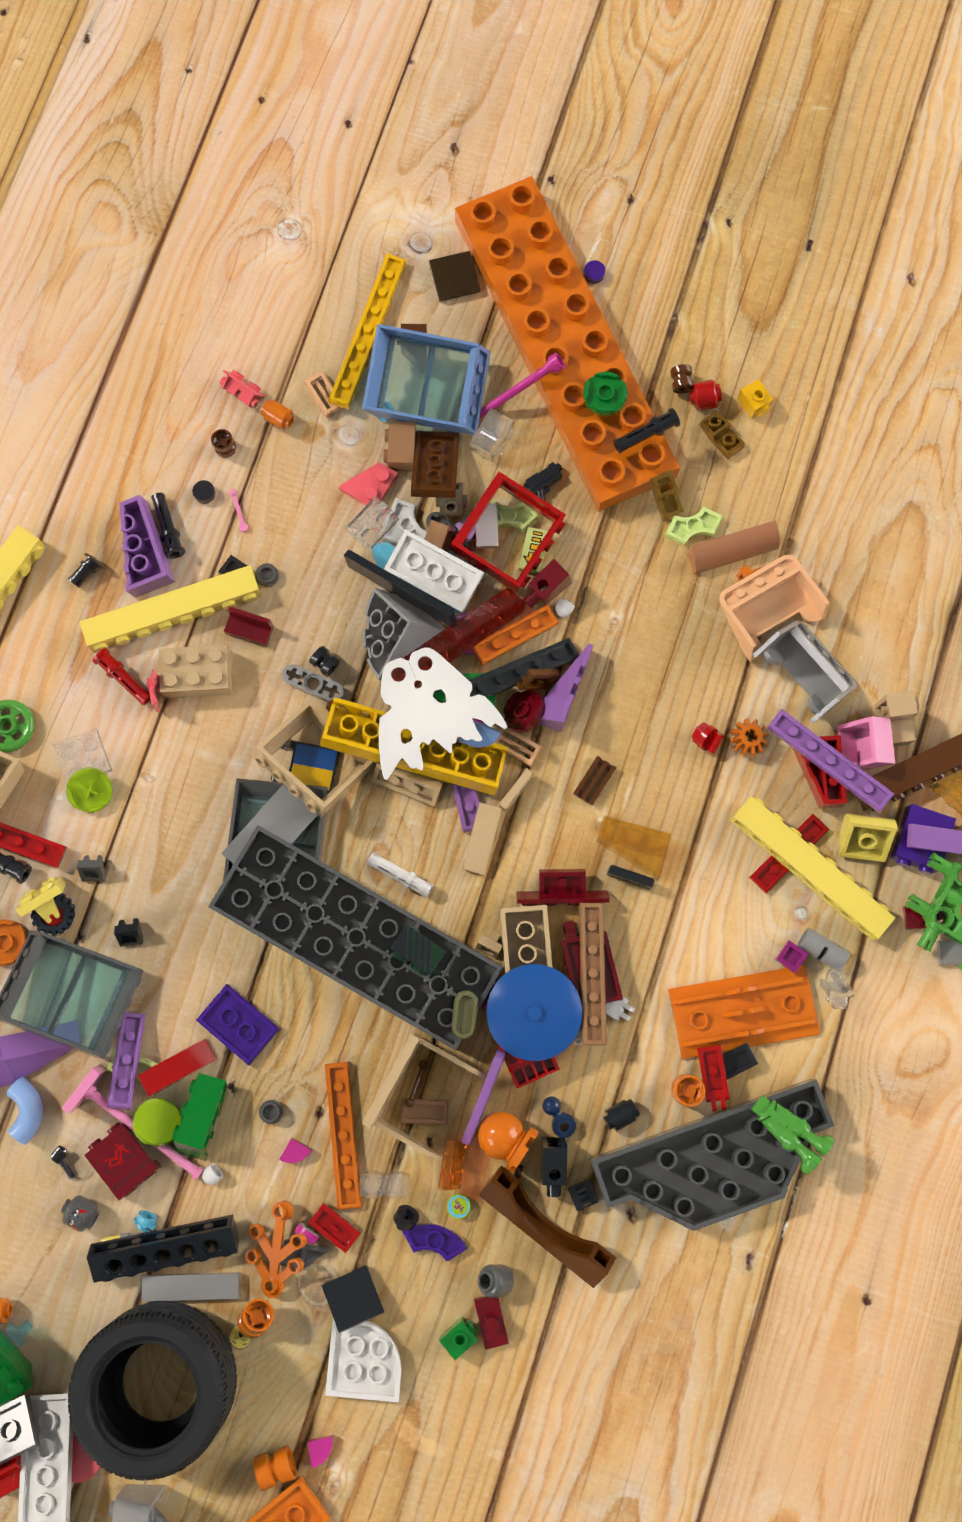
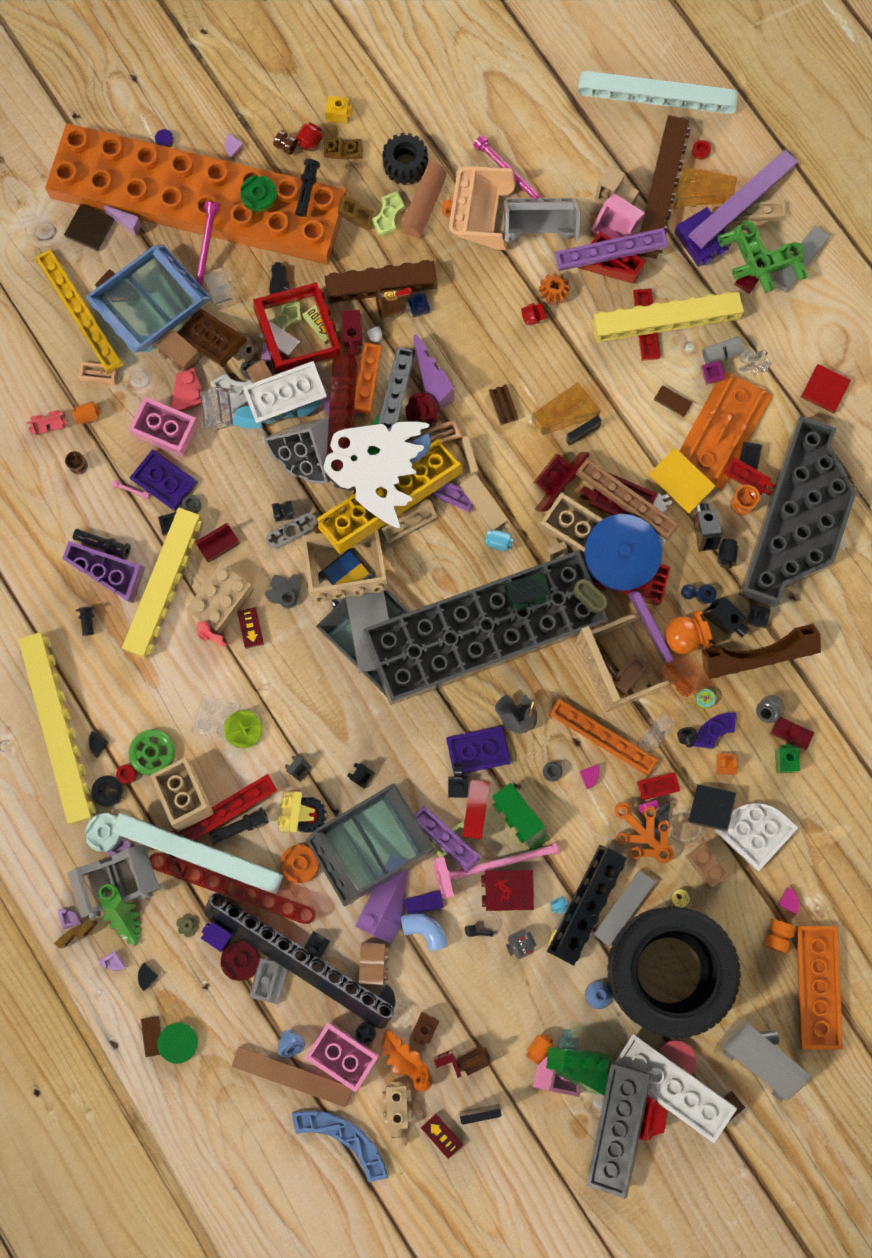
camera: 50 degrees left, 0 degrees up
(52, 1087) = (424, 903): none -> dark purple piece
(86, 1326) = (598, 995): none -> medium blue brick
(116, 670) = (173, 651): red pin -> none
(156, 1122) = (501, 848): lime tile -> none
(189, 1030) = (458, 784): none -> black plate
(192, 720) = (250, 627): none -> dark red tile
(203, 491) = (98, 502): black tile -> none
(212, 1174) = (563, 840): white hinge -> none
(251, 719) = (283, 589): none -> dark grey plate
(255, 1318) = (677, 877): orange wheel -> none
(270, 531) = (163, 480): none -> dark purple tile
(290, 1338) = (707, 865): none -> medium nougat brick
(296, 1035) = (518, 717): none -> dark grey helmet
(317, 492) = (164, 427): none -> bright pink brick
(400, 588) = (277, 423): black tile -> none
(402, 876) = (465, 572): white pin -> none
(409, 1279) = (726, 764): none -> orange tile
(456, 882) = (499, 540): none -> medium azure brick
(488, 304) = (127, 220): none -> lavender slope
(538, 679) = (410, 387): reddish brown tile -> none
(607, 597) = (391, 301): none -> reddish brown hat
(620, 572) = (362, 284): none -> reddish brown brick
(623, 1080) = (707, 528): none -> black torso
(627, 625) = (418, 305): none -> clear blue tile
(639, 335) = (232, 146): none -> lavender tile
(658, 1012) = (682, 480): none -> yellow tile
(732, 940) = (673, 401): none -> reddish brown piece
(765, 482) = (405, 145): none -> black tyre
(788, 1128) = (817, 453): bright green piece -> none
(836, 556) = (482, 144): none -> dark pink piece
(866, 837) = (675, 268): light yellow brick -> none
(871, 1081) = (825, 388): none -> red tile

